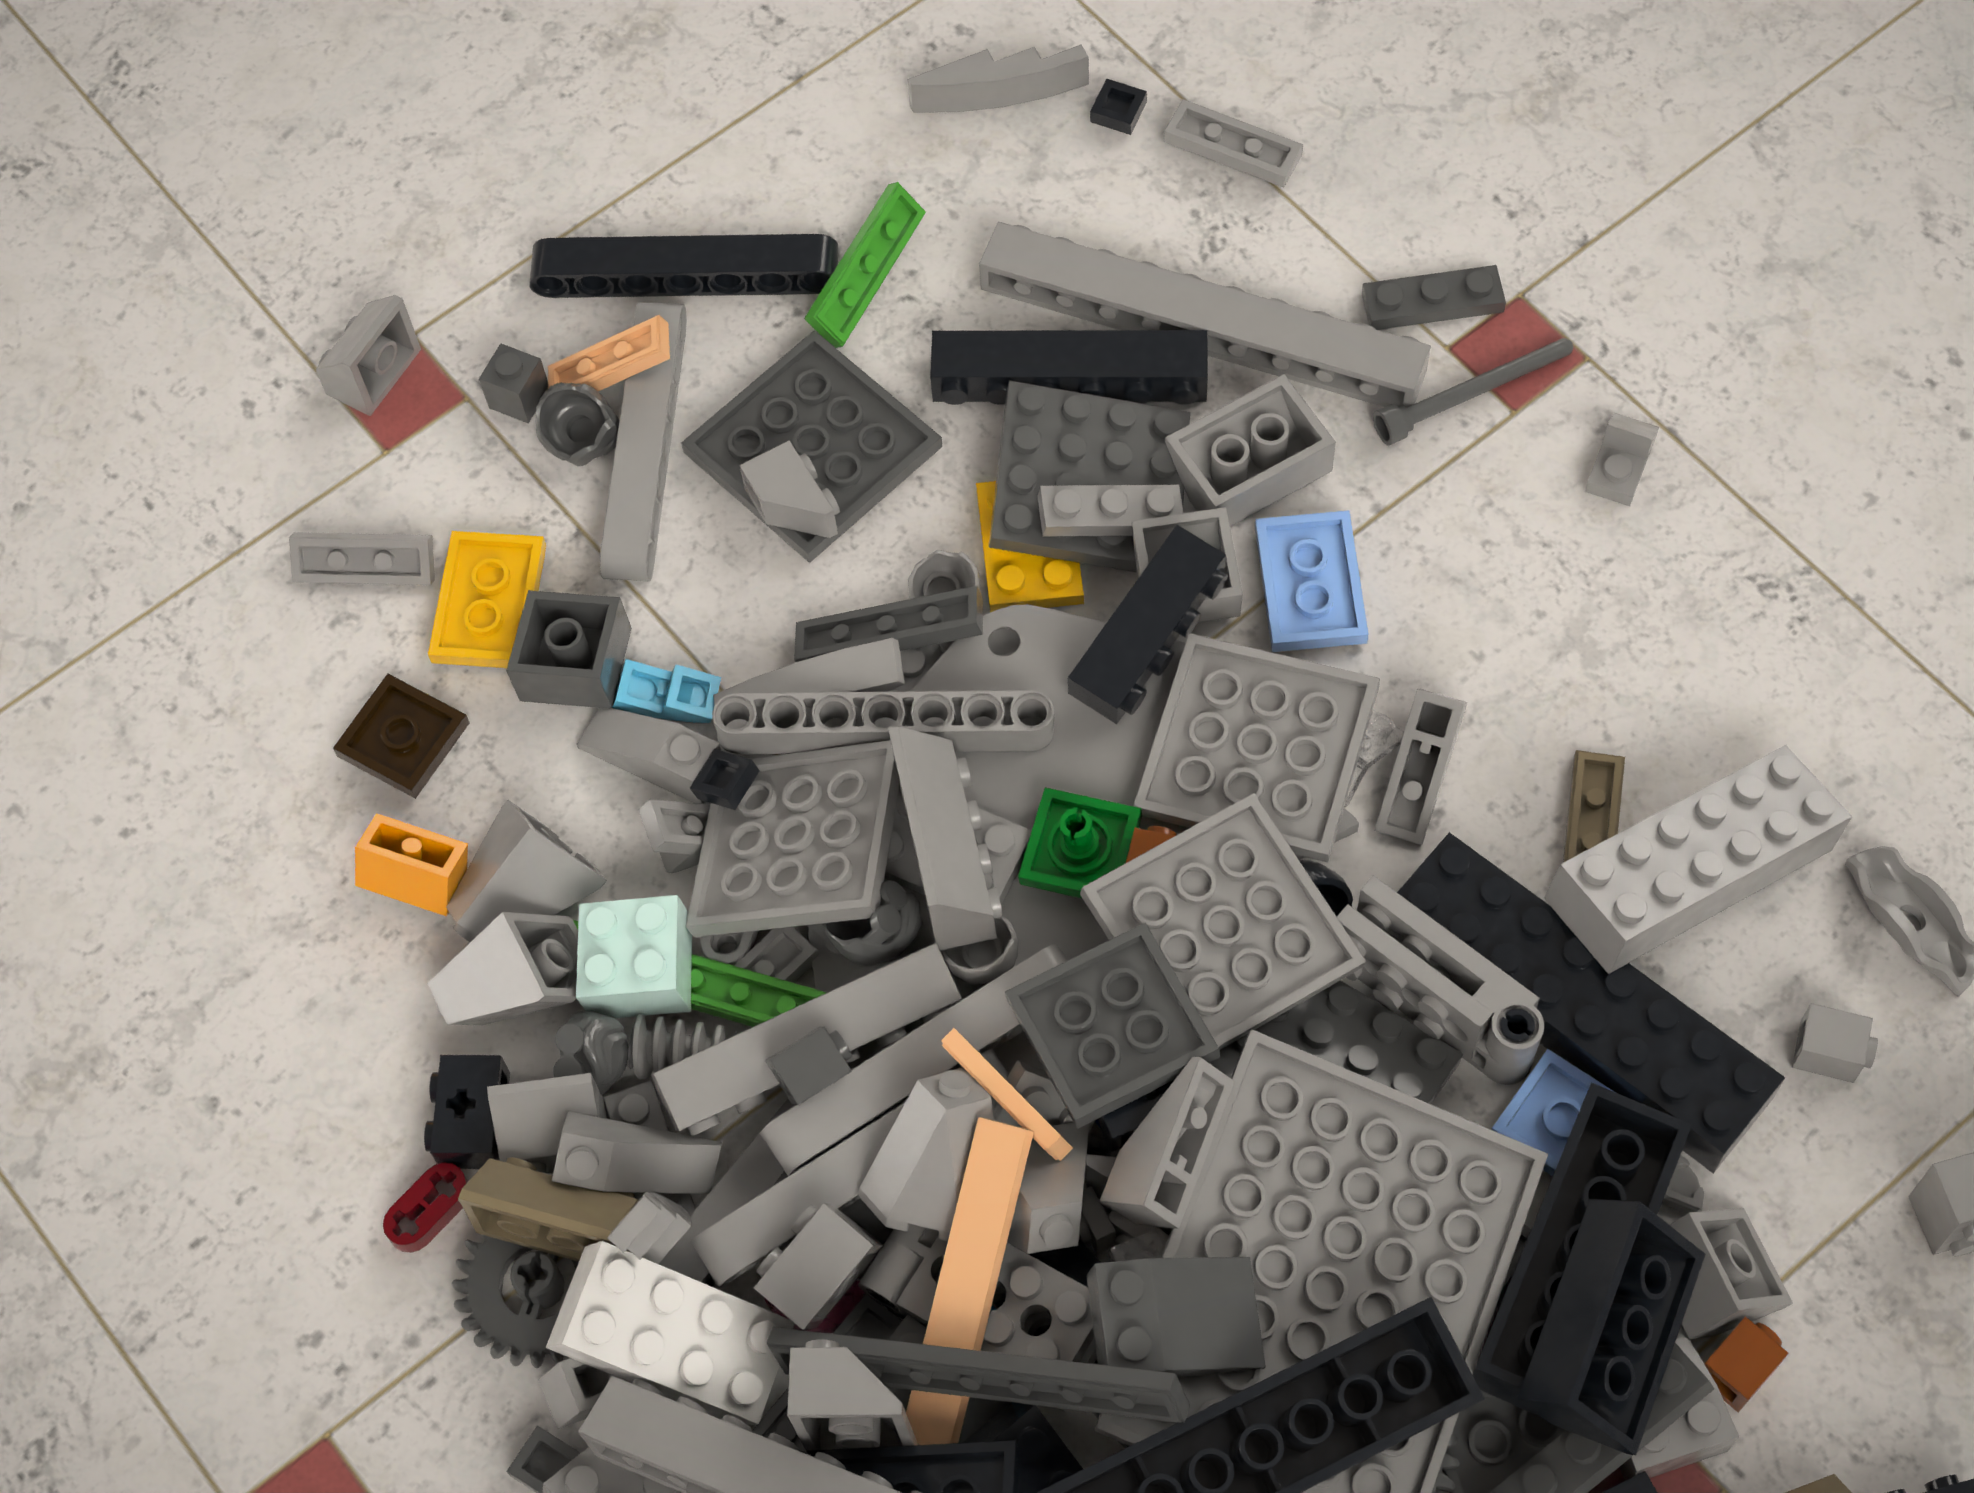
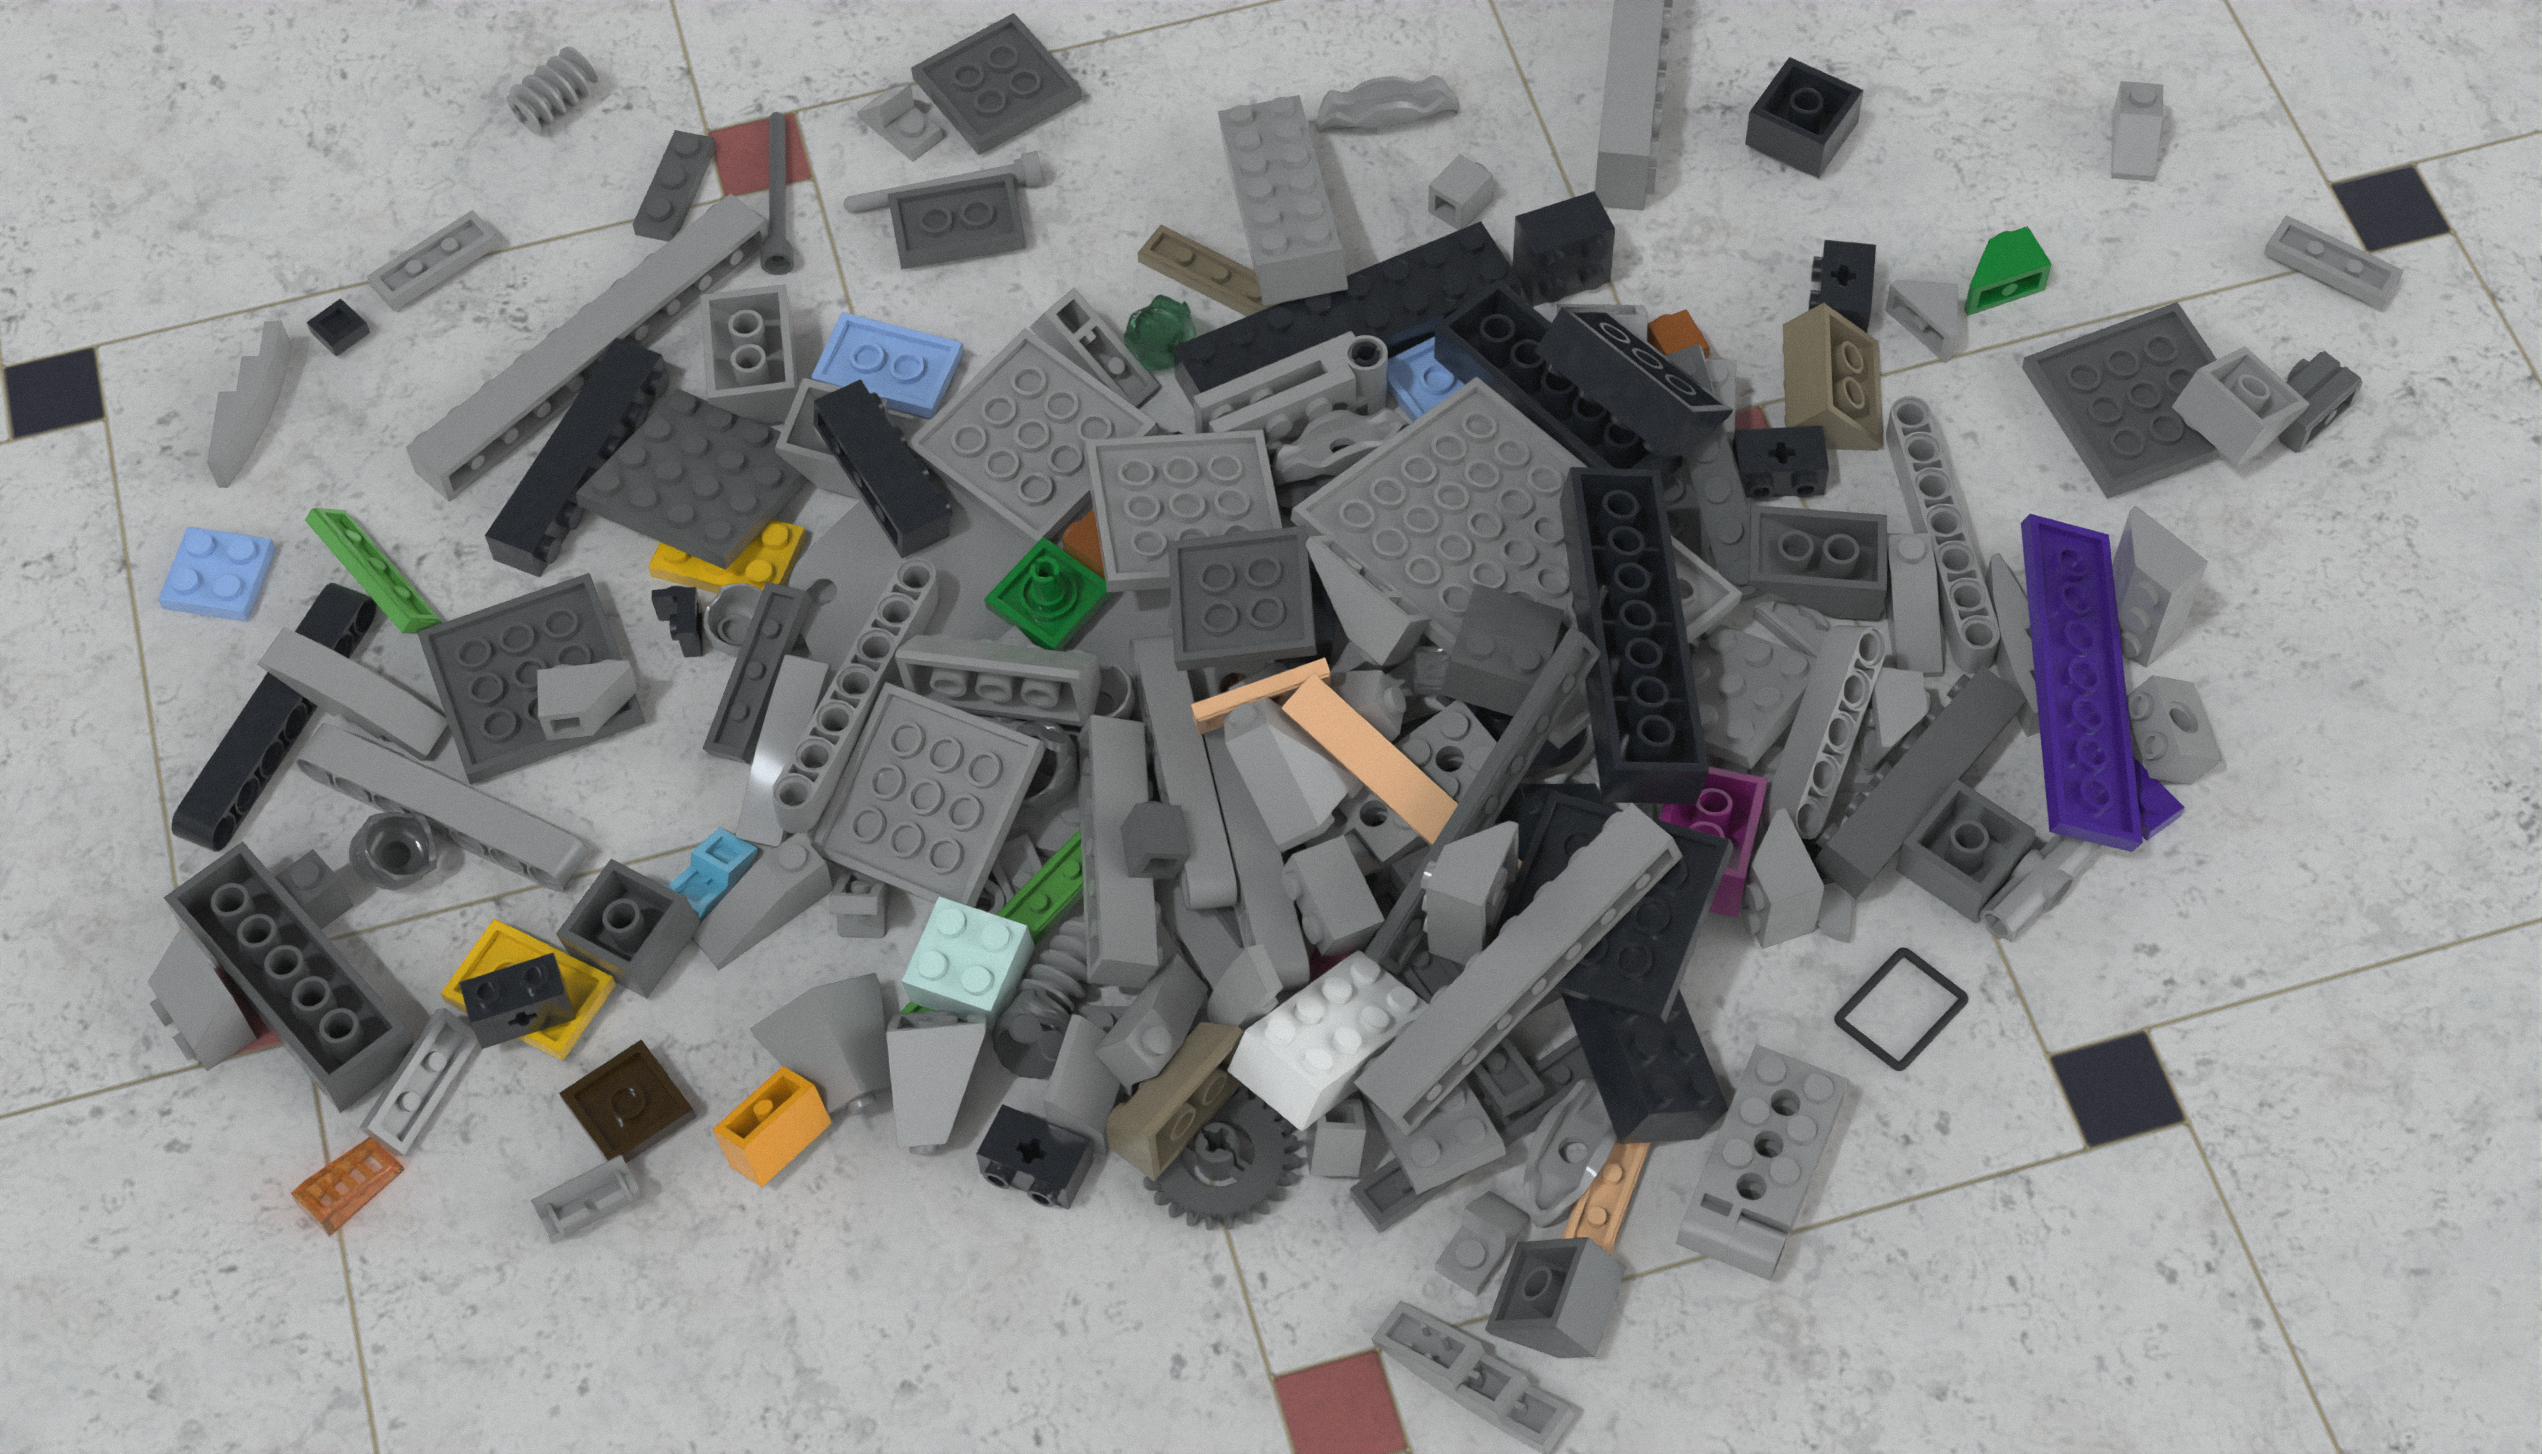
camera: 70 degrees left, 5 degrees down
(220, 539) = (345, 1206): none -> clear orange slope
(294, 746) = (586, 1198): none -> light grey hinge
(416, 408) = (291, 976): none -> dark grey brick
(420, 1198) = (1113, 1221): dark red beam -> none
(450, 592) = (517, 1000): none -> black brick
(615, 356) = (348, 795): light nougat tile -> none
(719, 310) = (353, 691): none -> light grey slope
(724, 779) = (837, 837): black plate -> none
(815, 150) = (217, 574): none -> light blue plate
(926, 539) = (685, 615): none -> black bracket
(1103, 508) = (746, 467): light grey plate -> none
(1378, 1027) = (1312, 451): none -> light grey piece
(1477, 139) = (550, 87): none -> light grey piece
(1477, 814) = (1156, 330): none -> clear green hair
(1522, 563) = (956, 221): none -> dark grey plate
(1624, 599) = (1025, 170): none -> light grey piece
(1720, 521) = (996, 83): none -> dark grey plate
(1799, 1183) = (1563, 249): none -> black brick

